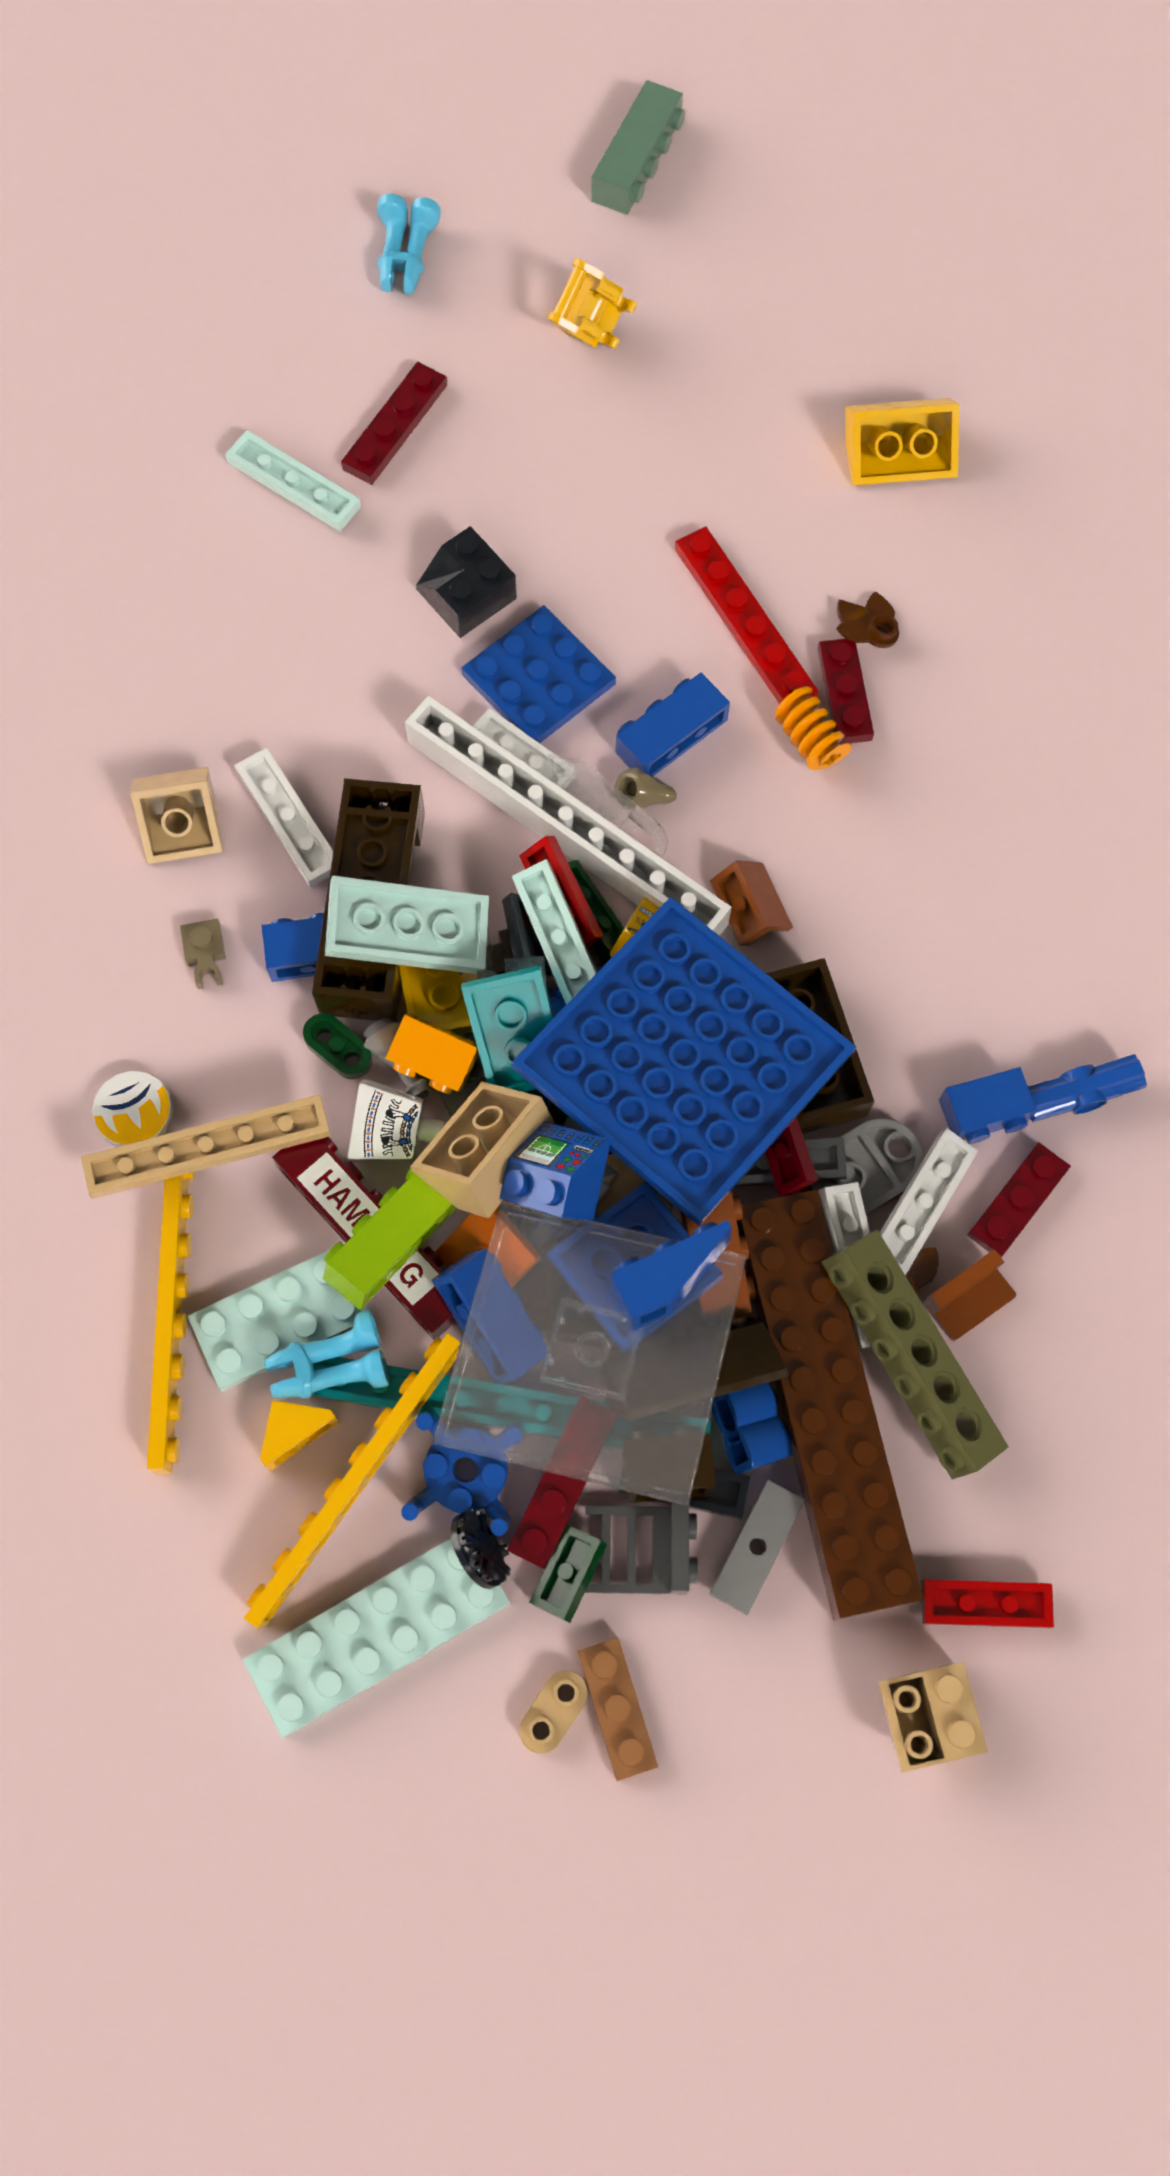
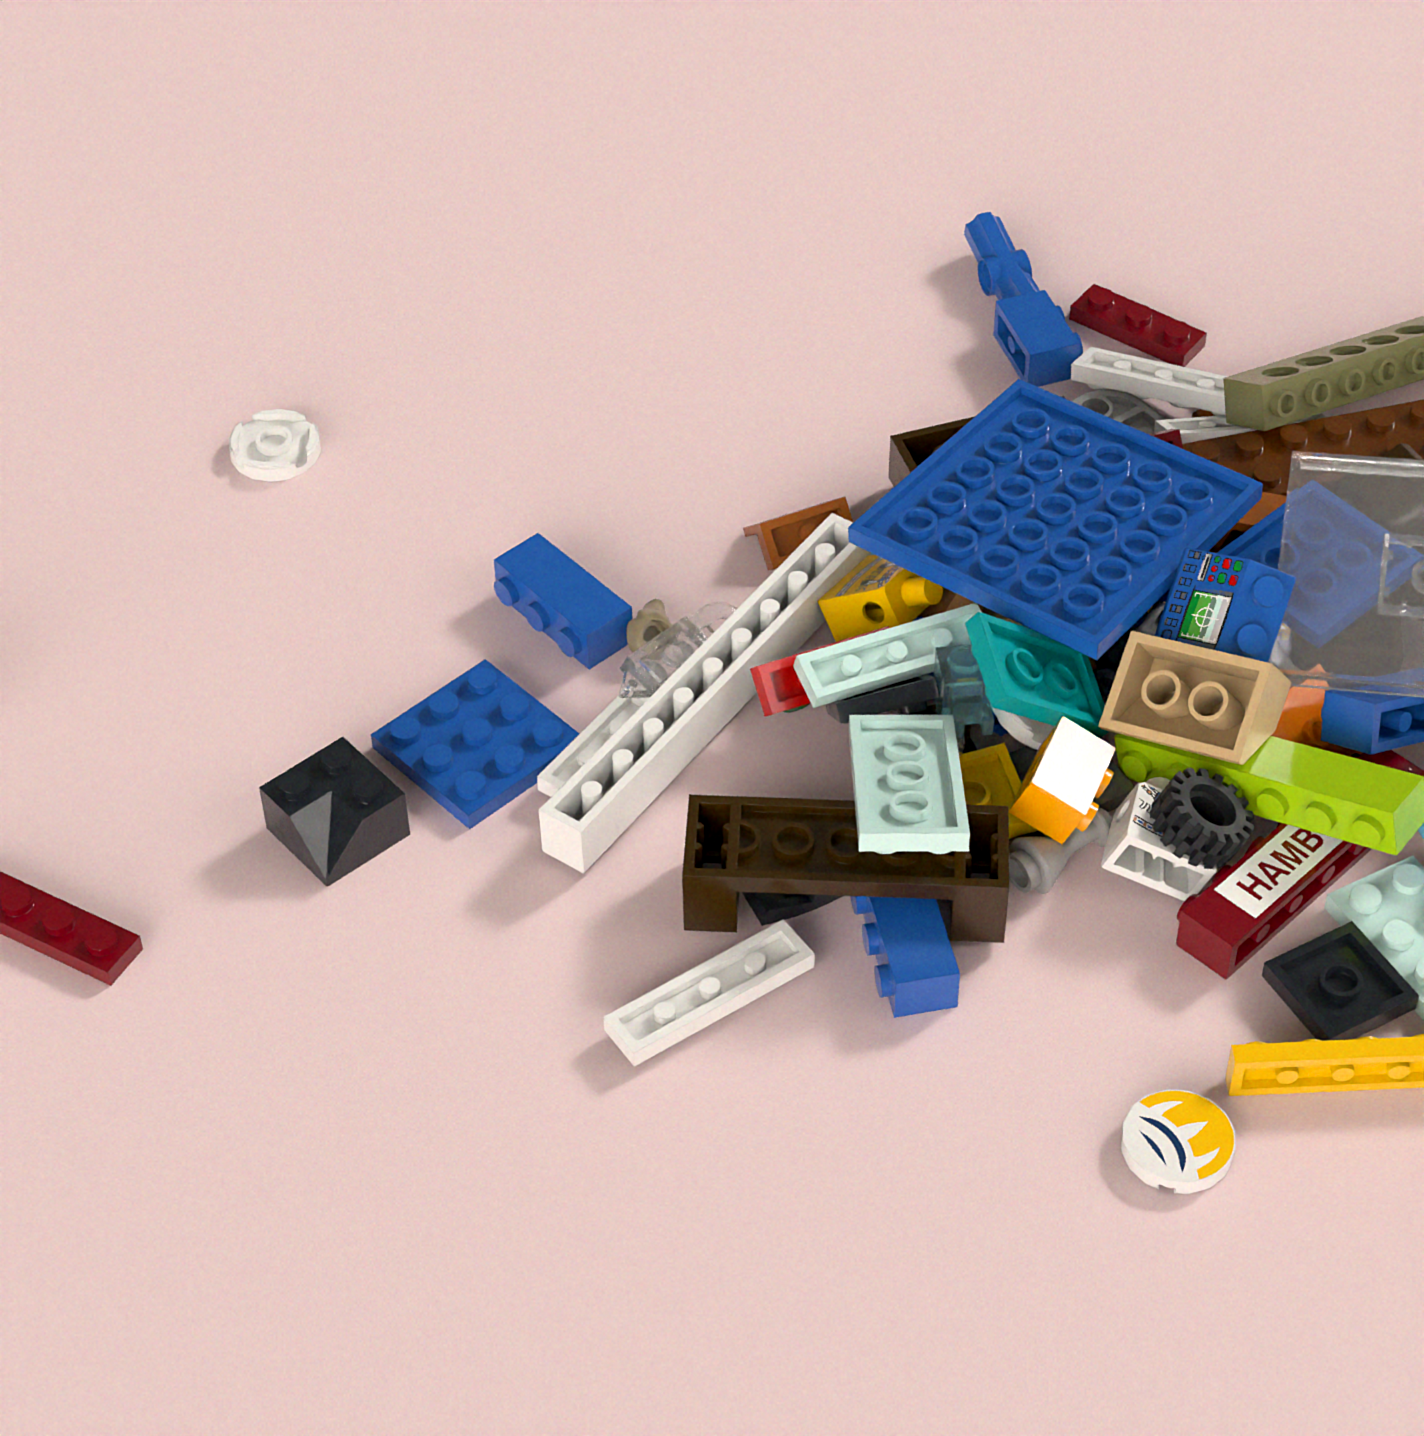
camera: 90 degrees left, 25 degrees down
(176, 815) = (712, 1118): tan slope -> none
(203, 946) = (919, 1084): dark tan plate -> none
(205, 1146) = (1243, 1005): tan plate -> none
(249, 1240) = (1340, 985): none -> black plate
(293, 480) = (134, 1030): light aqua plate -> none
(339, 1047) = (1046, 916): dark green plate -> none
(370, 1167) = (1202, 818): none -> black tyre
(662, 1280) = (1346, 497): blue slope -> none
(743, 614) = (393, 548): red plate -> none
(808, 732) = (567, 471): light orange piece -> none
(845, 690) = (503, 458): dark red plate -> none
(863, 533) = (274, 445): none -> white tile
(870, 623) = (412, 434): reddish brown plate -> none
(902, 441) = (145, 402): yellow slope -> none
(970, 1297) = (1237, 348): dark orange panel -> none

